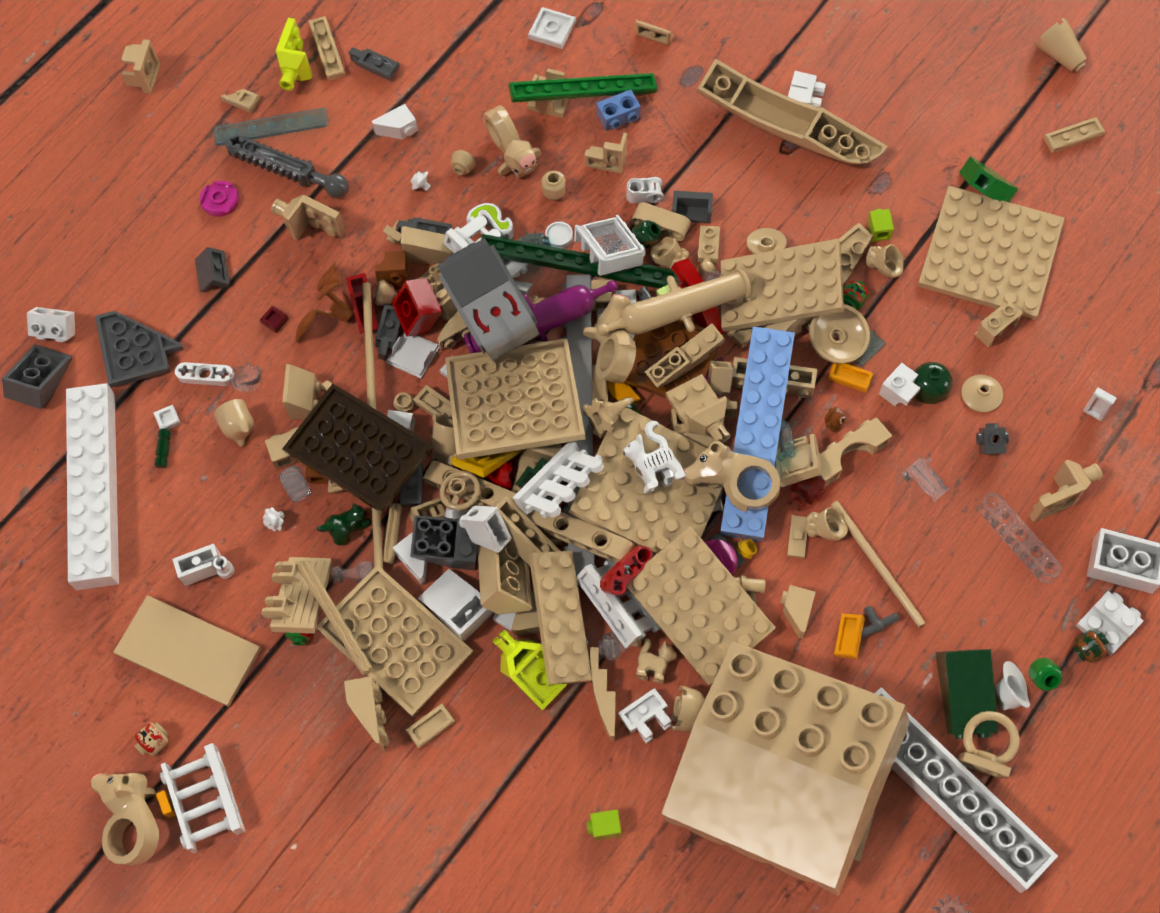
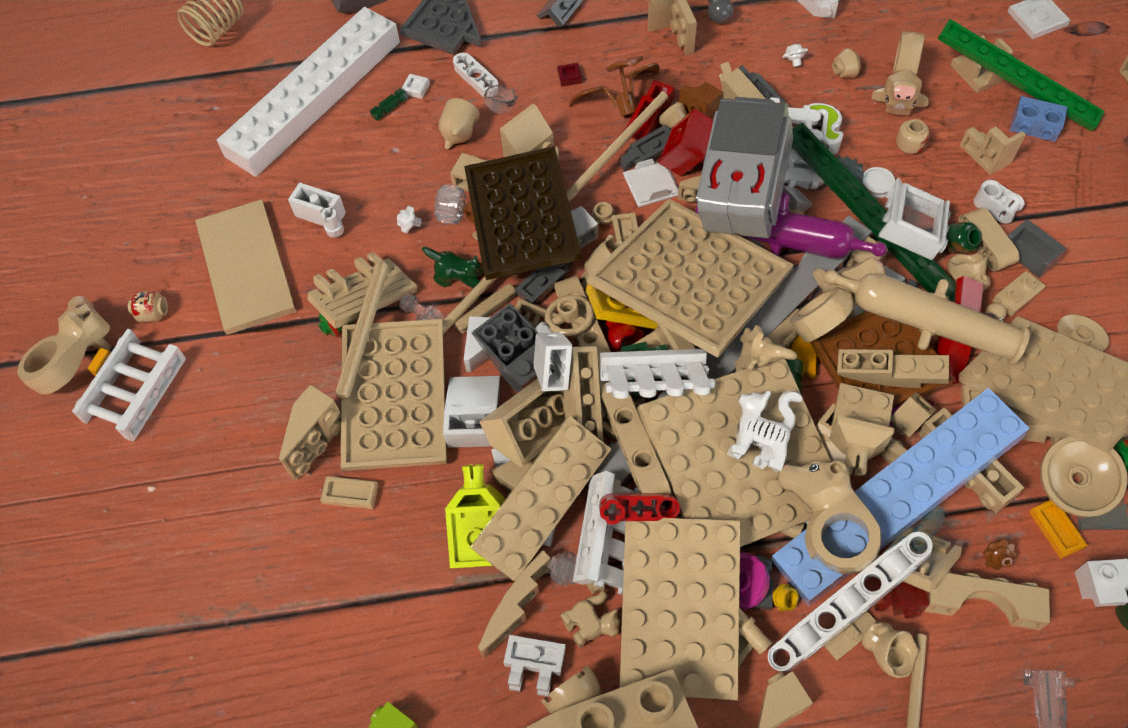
camera: 45 degrees right, 5 degrees down
(786, 518) = (850, 601): none -> white beam

